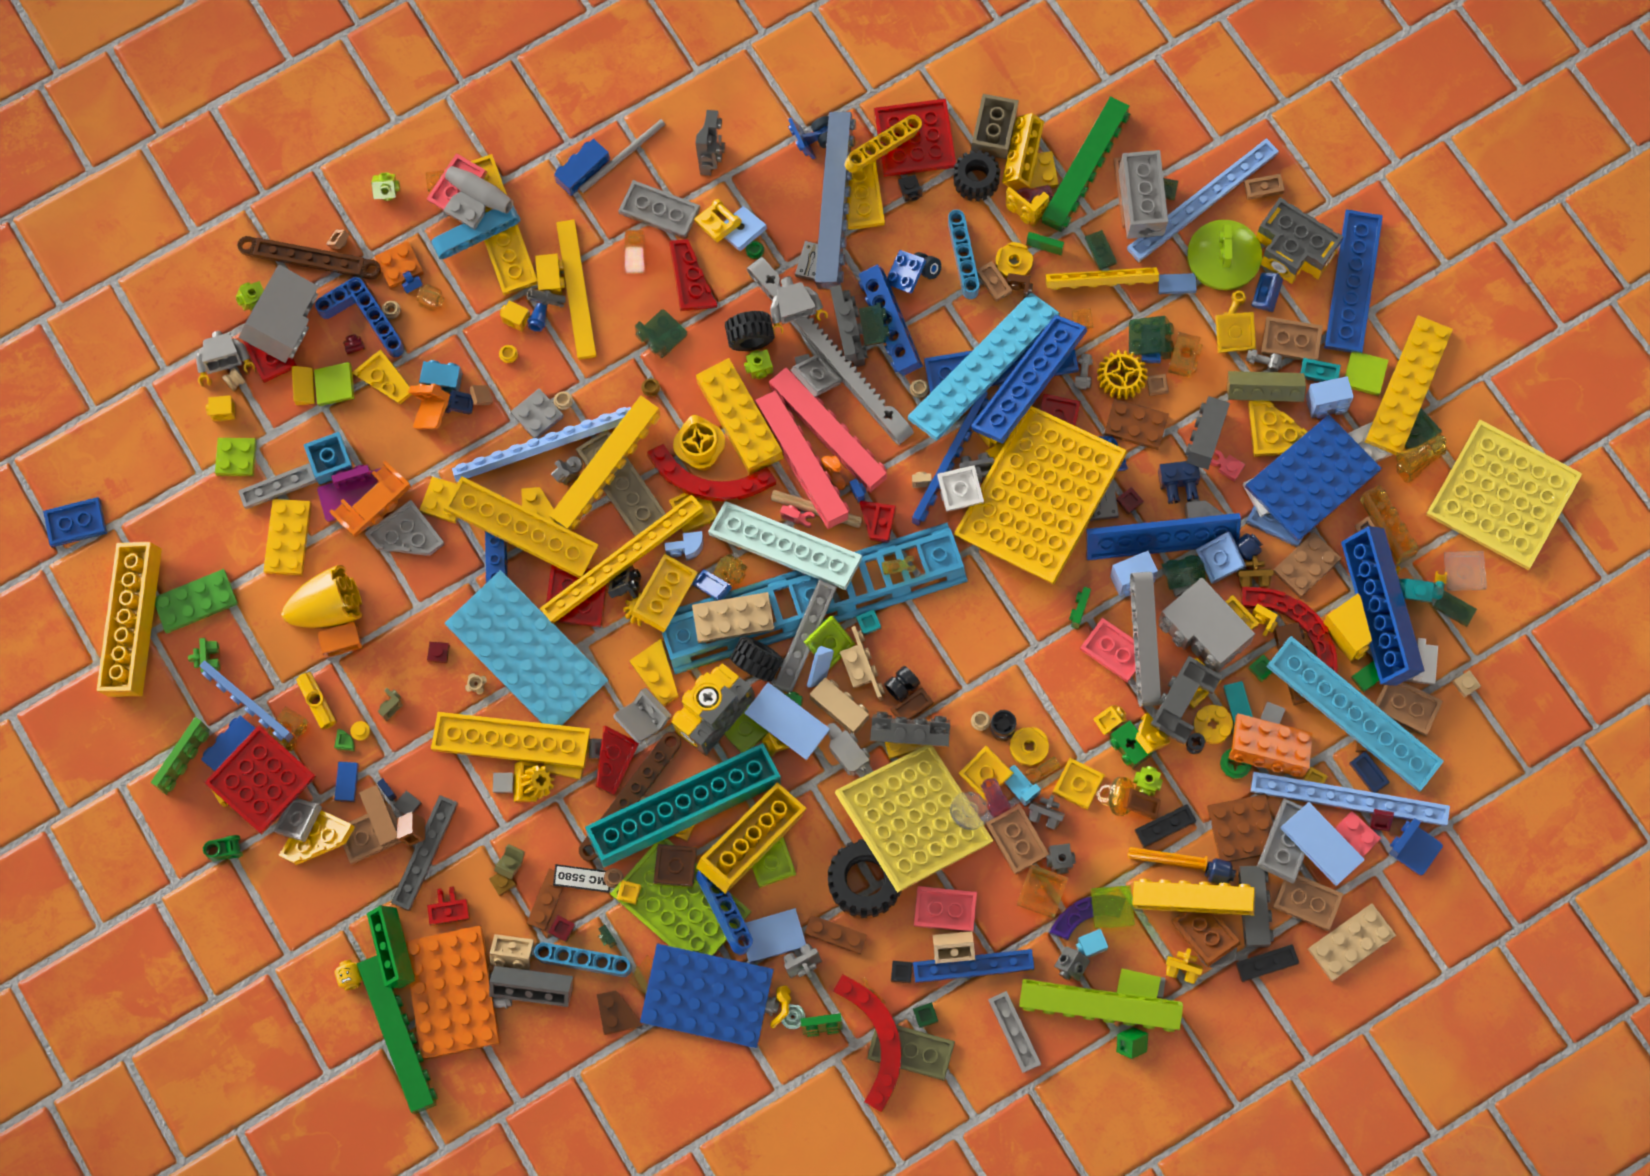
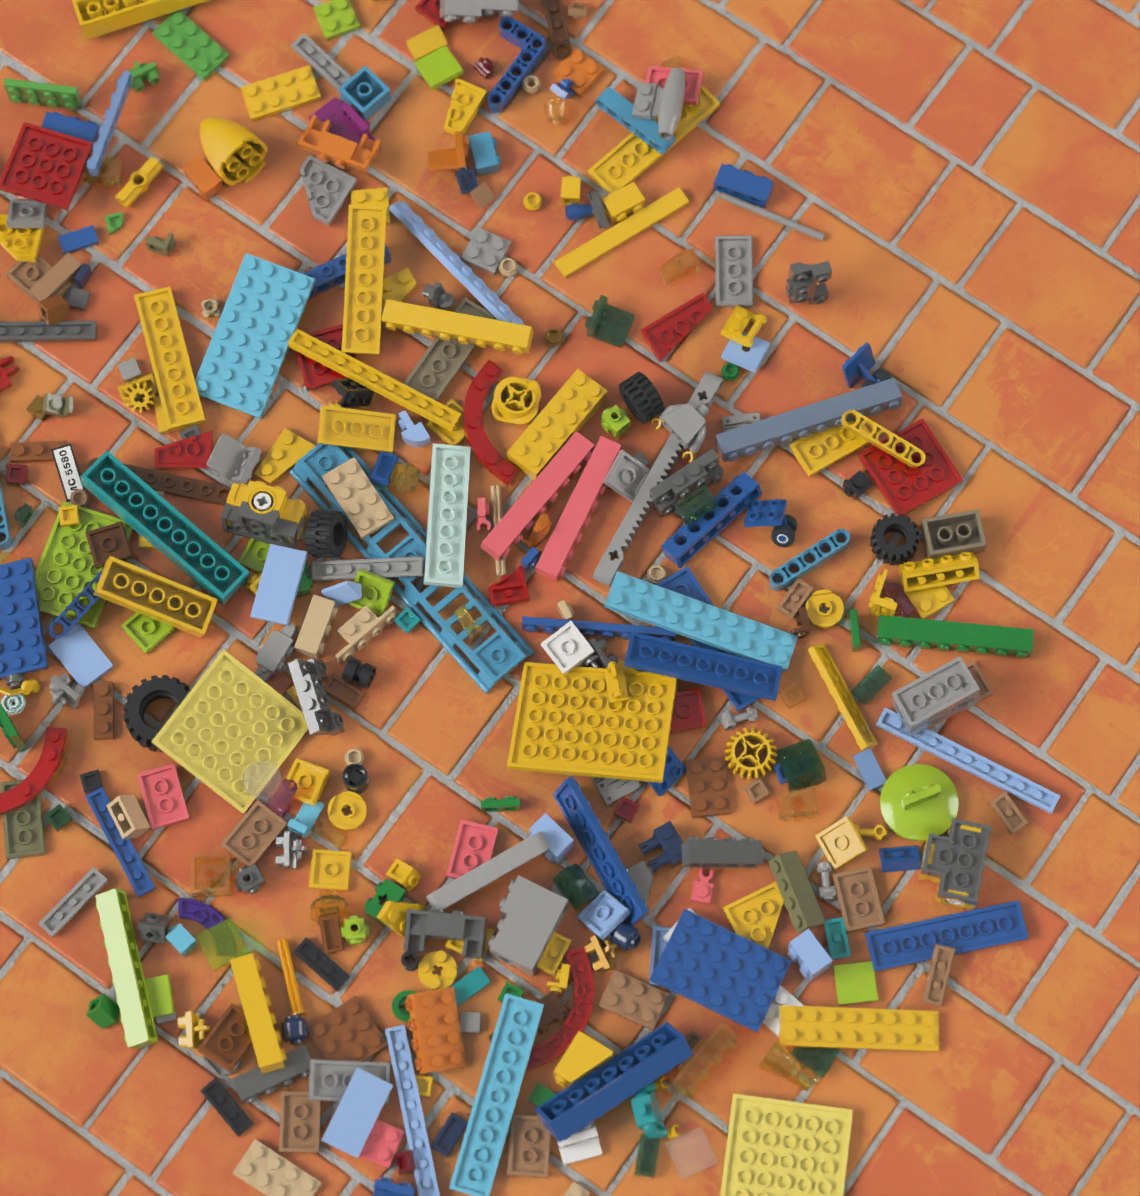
camera: 65 degrees right, 0 degrees up
(360, 730) = (128, 230): yellow plate -> none
(385, 186) = (645, 25): lime brick -> none
(438, 652) = (226, 264): dark red plate -> none
(1014, 458) = (616, 683): none -> yellow hinge
(1170, 188) = (964, 722): plate -> none
(1386, 301) = (938, 975): none -> medium nougat tile

